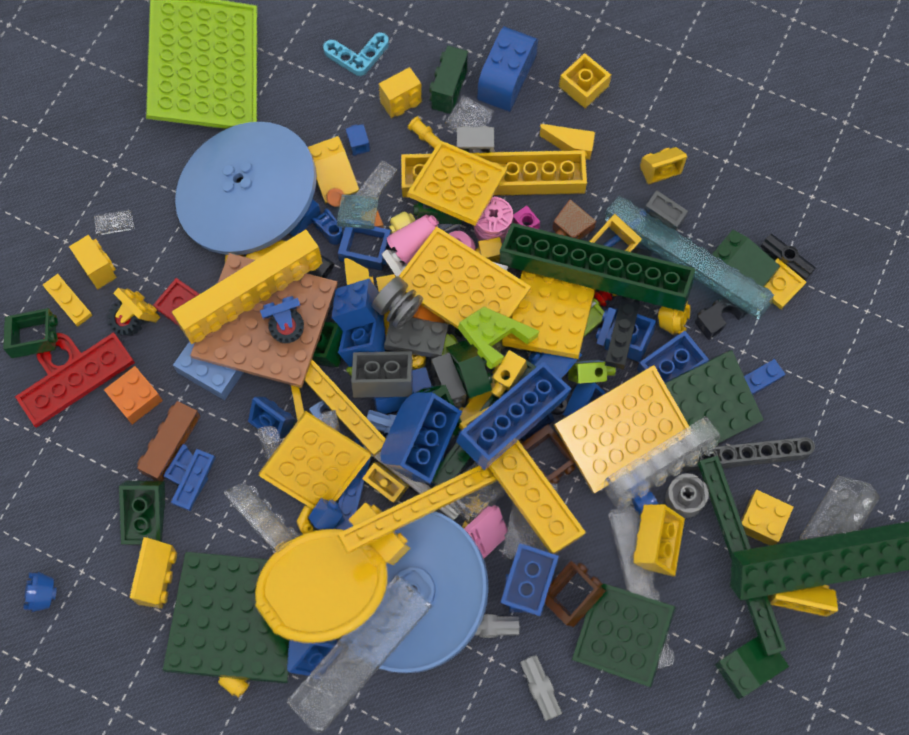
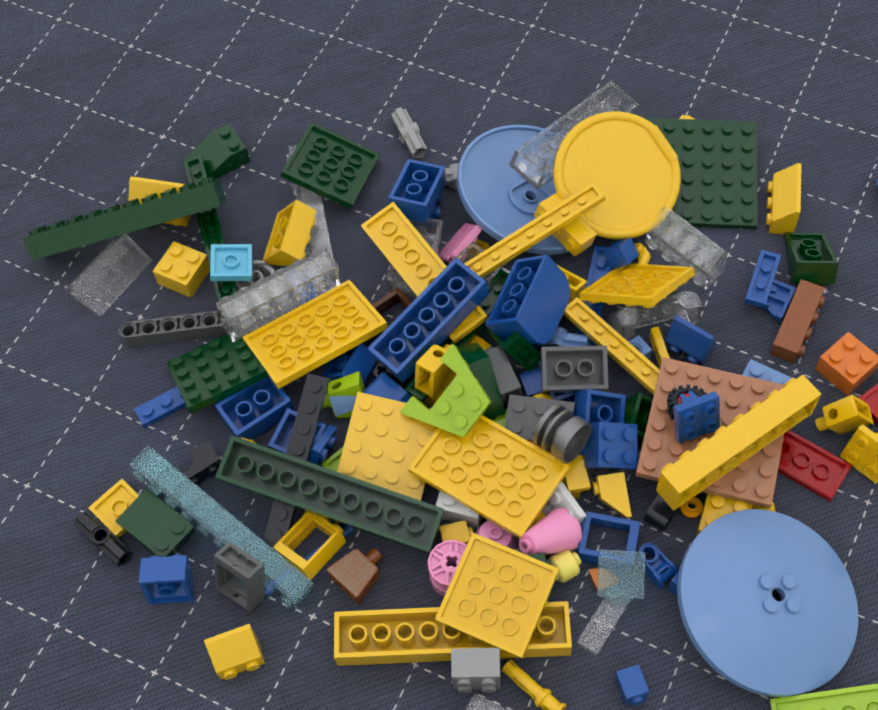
camera: 175 degrees left, 10 degrees down
(148, 339) = (845, 415): none -> yellow torso
(333, 167) = (661, 642): yellow slope -> none
(334, 196) = (652, 605): orange tile -> none
(526, 215) = (415, 582): dark pink brick -> none
(561, 581) = (382, 178): reddish brown window -> none
(568, 138) = (345, 686): yellow slope -> none
(713, 500) = (231, 262): none -> medium azure plate
(727, 214) = (166, 579): none -> blue slope

